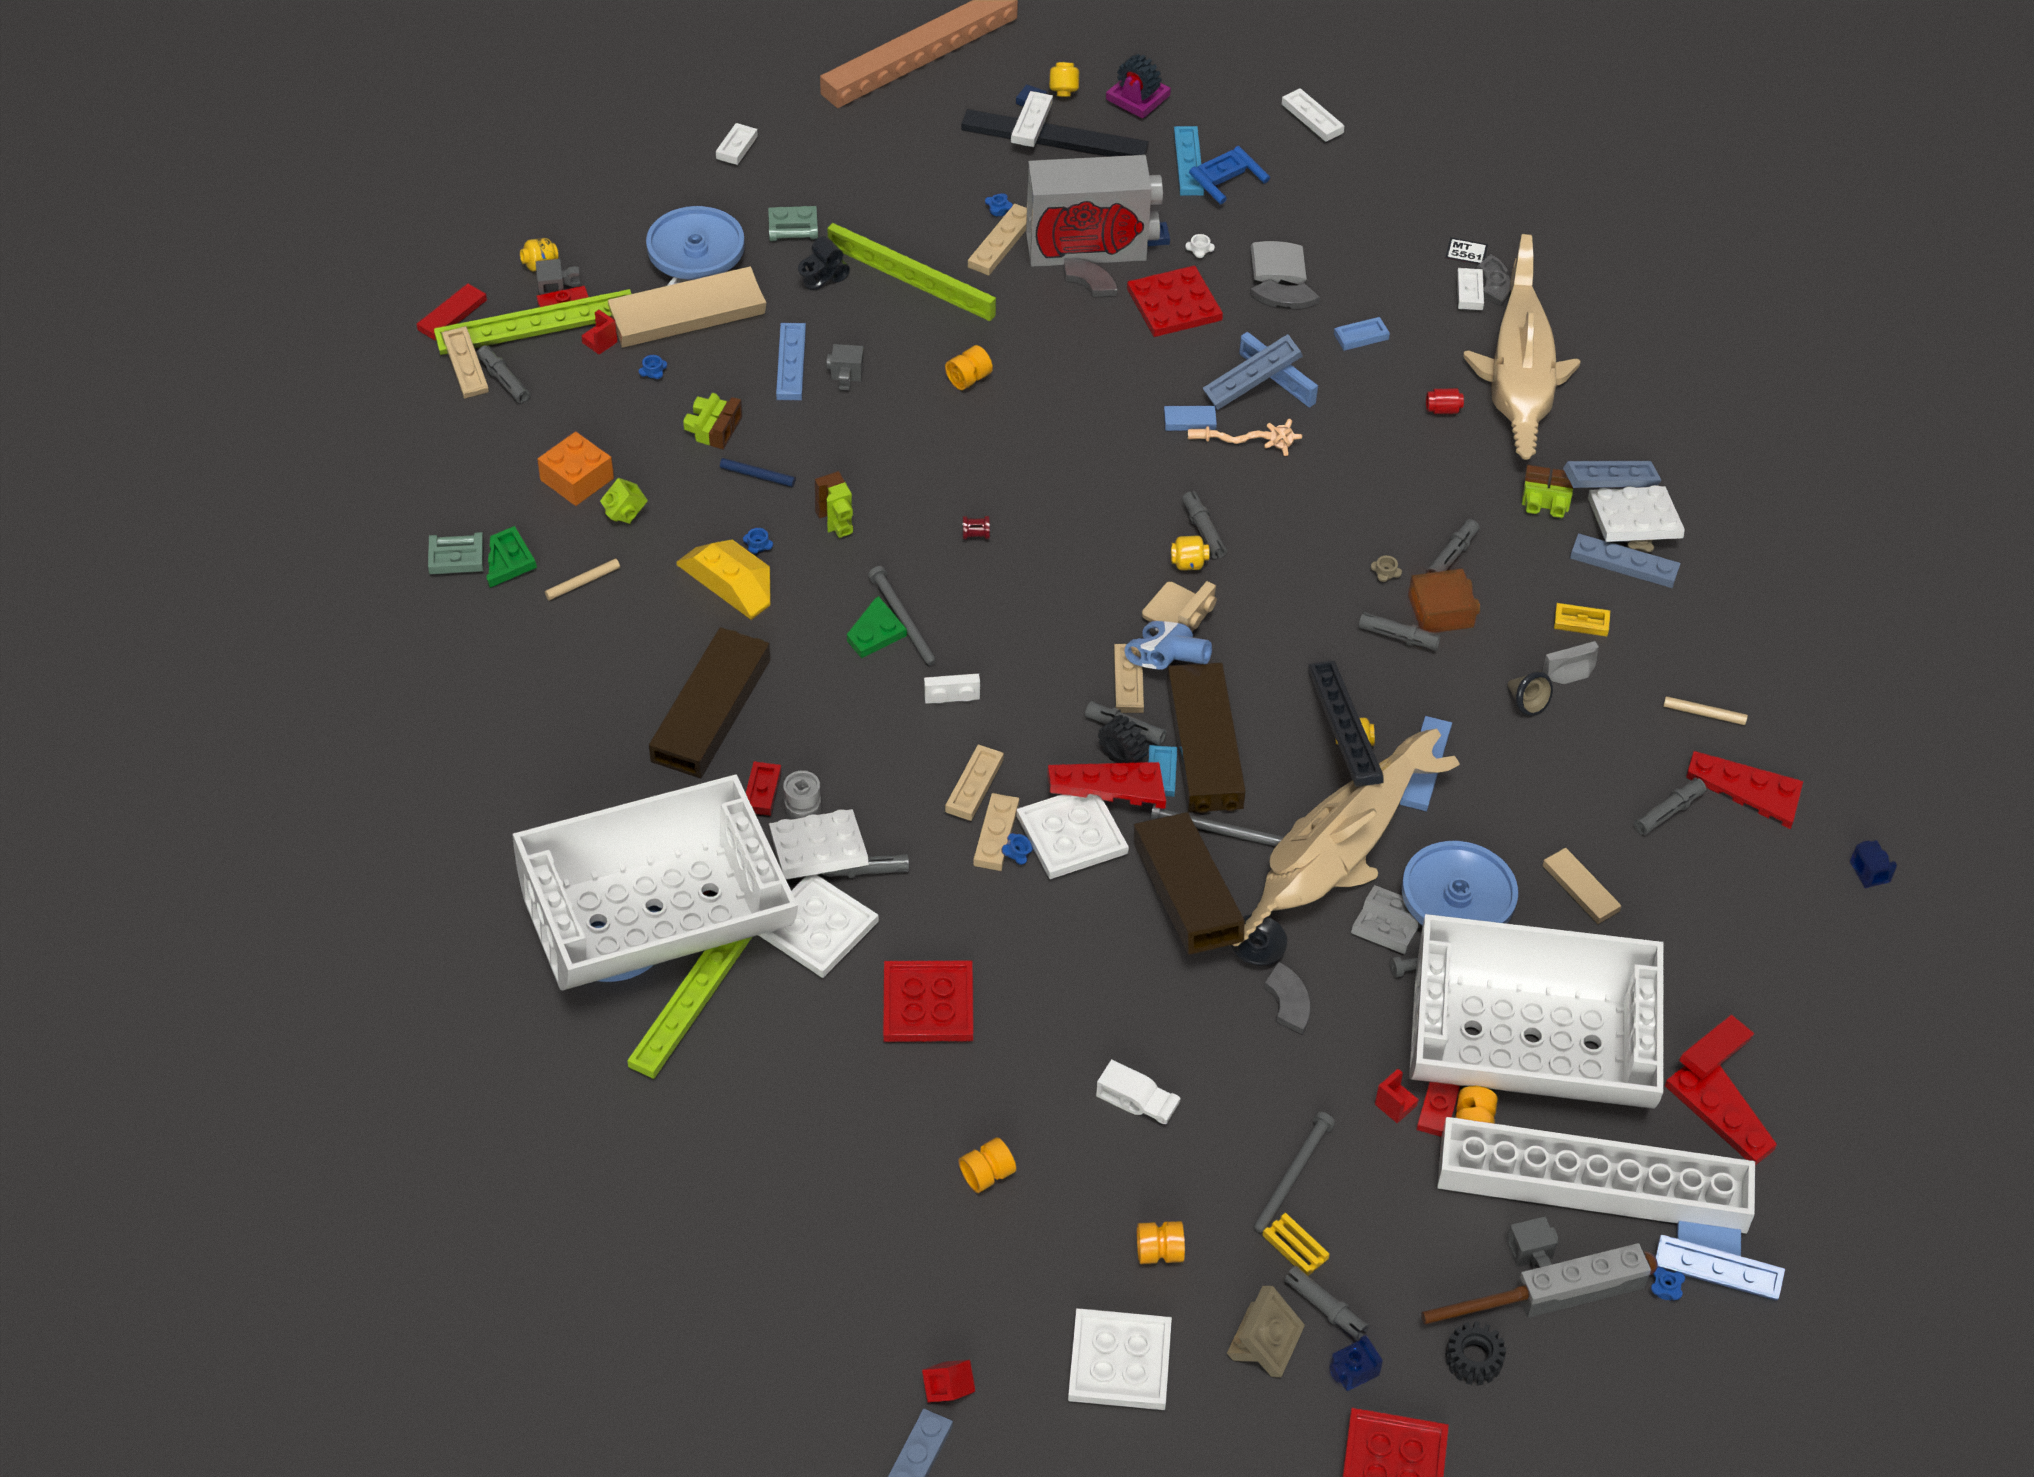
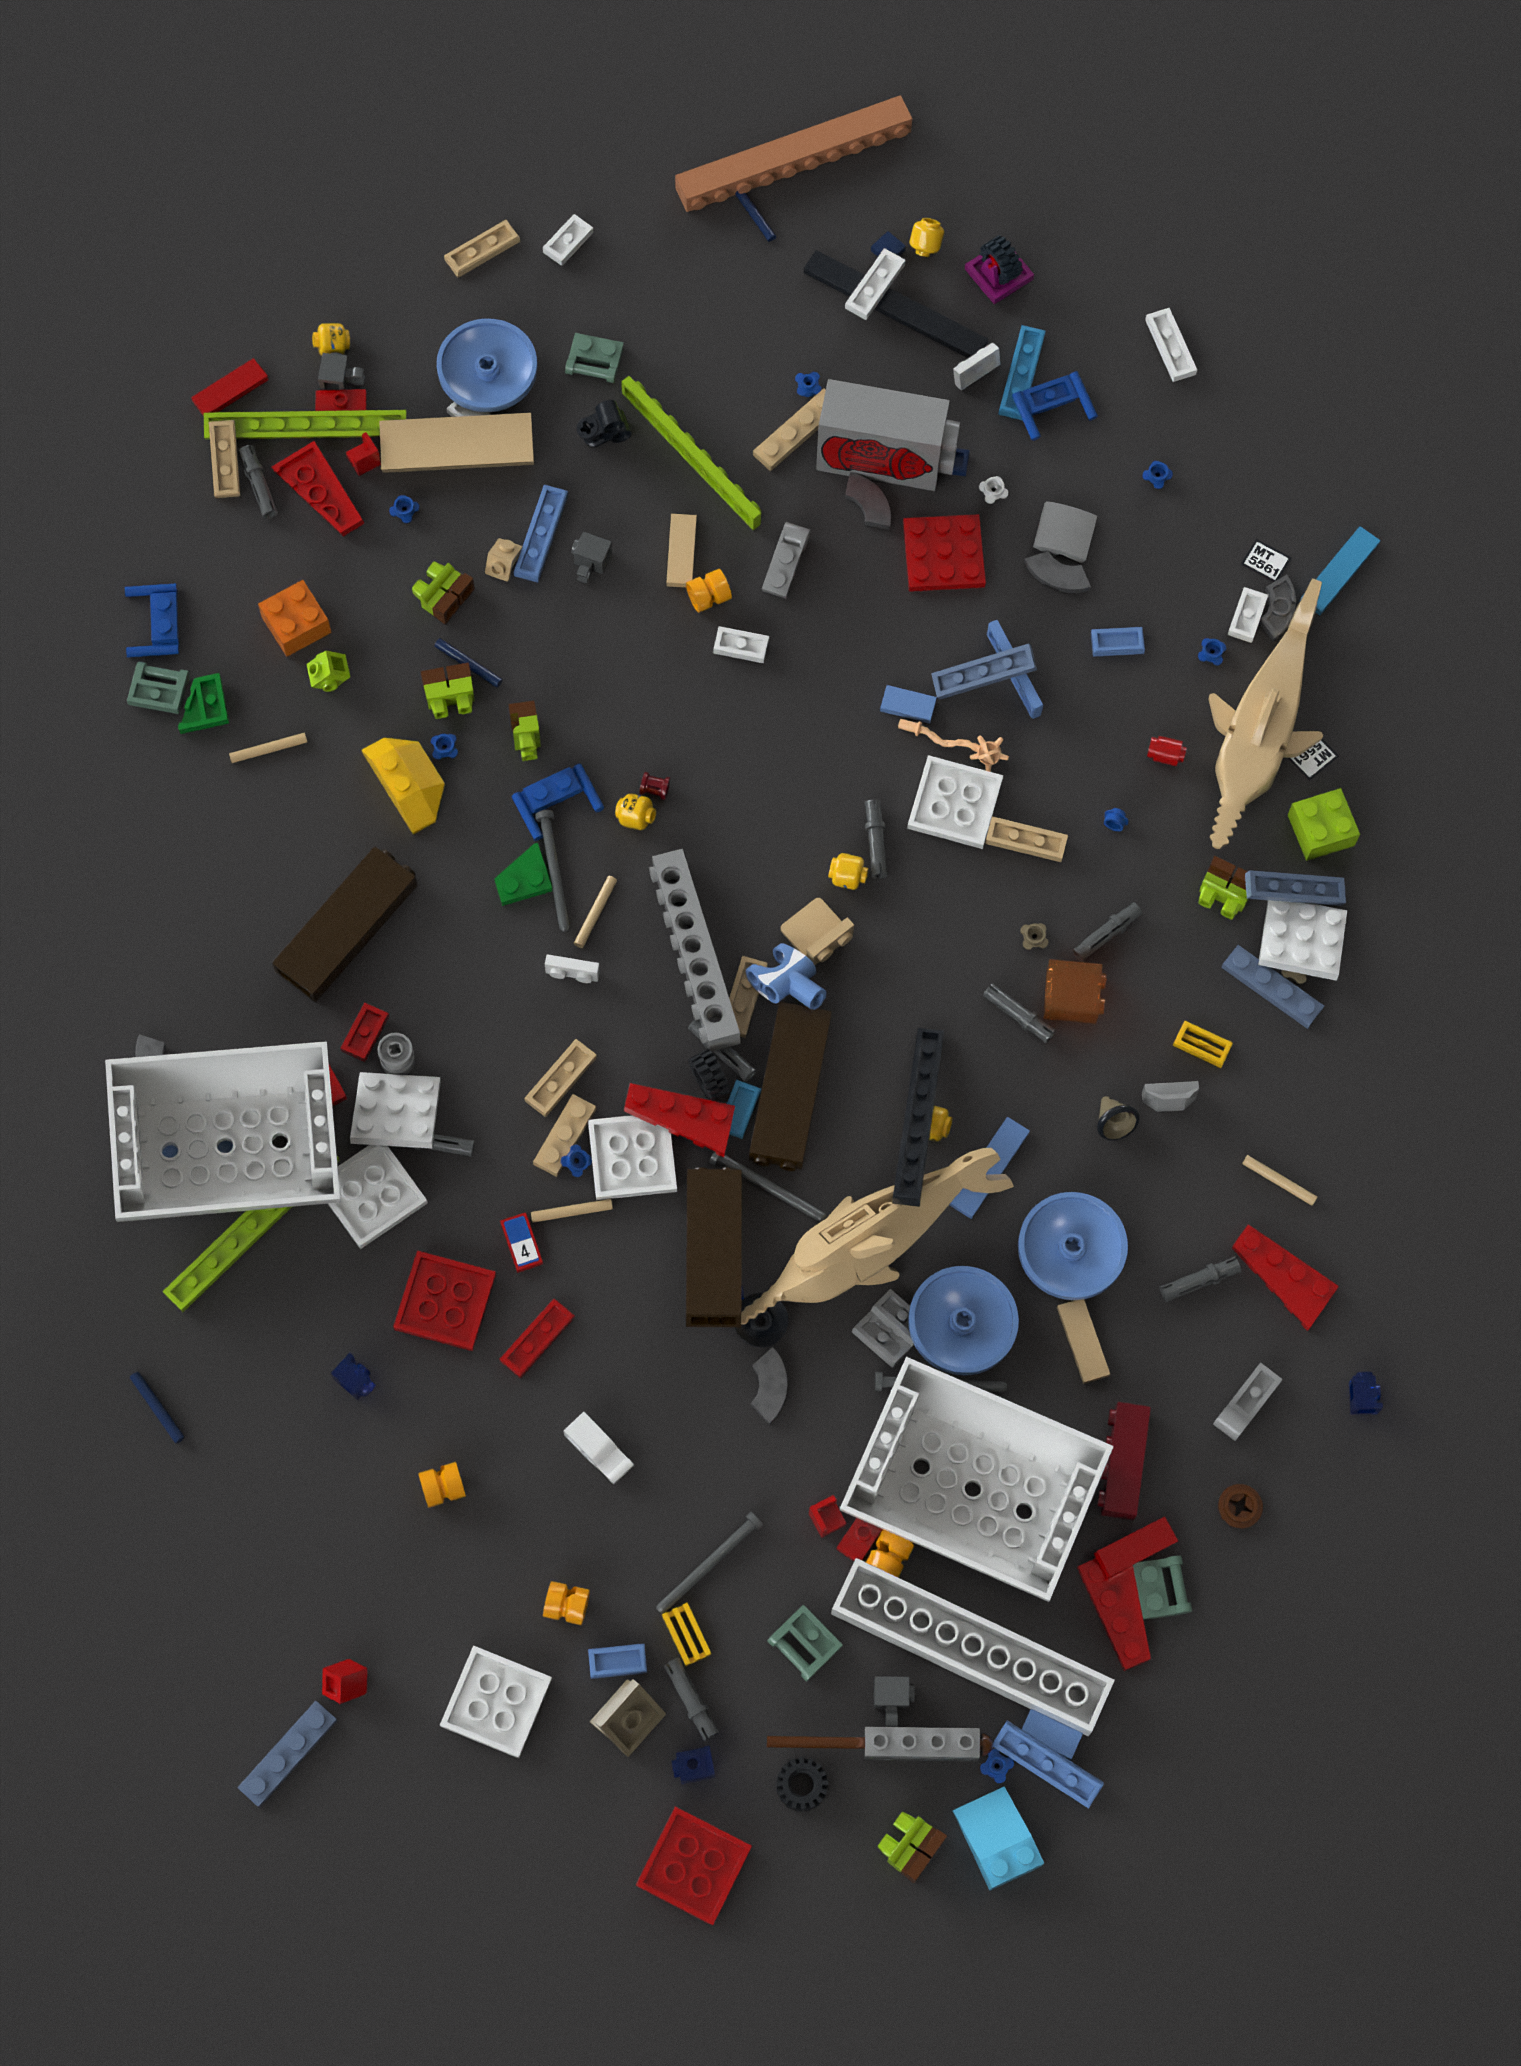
camera: 15 degrees right, 20 degrees up
(443, 498) = (163, 620): none -> blue plate
(562, 364) = (317, 484): none -> red wing
(654, 1173) = (157, 1407): none -> dark blue bar
(657, 166) = (482, 248): none -> tan tile
(746, 493) = (440, 696): none -> lime hips
(761, 386) = (502, 558): none -> tan bracket
(857, 1092) = (353, 1377): none -> clear blue brick
(878, 553) = (553, 791): none -> blue plate
(902, 98) = (756, 216): none -> dark blue bar
(929, 346) = (681, 550): none -> tan tile
(956, 641) = (595, 912): none -> tan bar
(965, 550) = (635, 811): none -> yellow head
(987, 933) = (521, 1242): none -> tile
(1015, 404) = (741, 644): none -> white plate
(1027, 894) = (571, 1210): none -> tan bar
(1031, 333) = (786, 559): none -> light grey plate
(1035, 1014) = (537, 1338): none -> red tile
(1069, 644) = (674, 866): none -> light grey brick
(1155, 154) = (976, 366): none -> white plate
(1232, 1288) = (617, 1661): none -> medium blue tile
(1266, 481) = (955, 802): none -> white plate
(1342, 206) = (1160, 468): none -> blue plate
(1345, 495) = (1026, 839): none -> tan plate
(1421, 463) = (1115, 819): none -> blue plate
(1426, 1211) = (811, 1636): none -> sand green plate
(1450, 322) = (1215, 645): none -> blue plate
(1537, 803) = (1072, 1246): none -> medium blue dish
(1542, 232) = (1344, 566): none -> dark azure tile
(1579, 384) = (1314, 759): none -> sticker
(1613, 424) = (1323, 824): none -> lime brick
(1620, 1382) = (921, 1837): none -> lime hips
(1681, 997) = (1125, 1462): none -> dark red brick
(1702, 1352) = (998, 1838): none -> medium azure slope
(1752, 1085) = (1153, 1591): none -> sand green plate
(1764, 896) = (1247, 1401): none -> light grey plate
(1810, 986) = (1252, 1503): none -> reddish brown gear

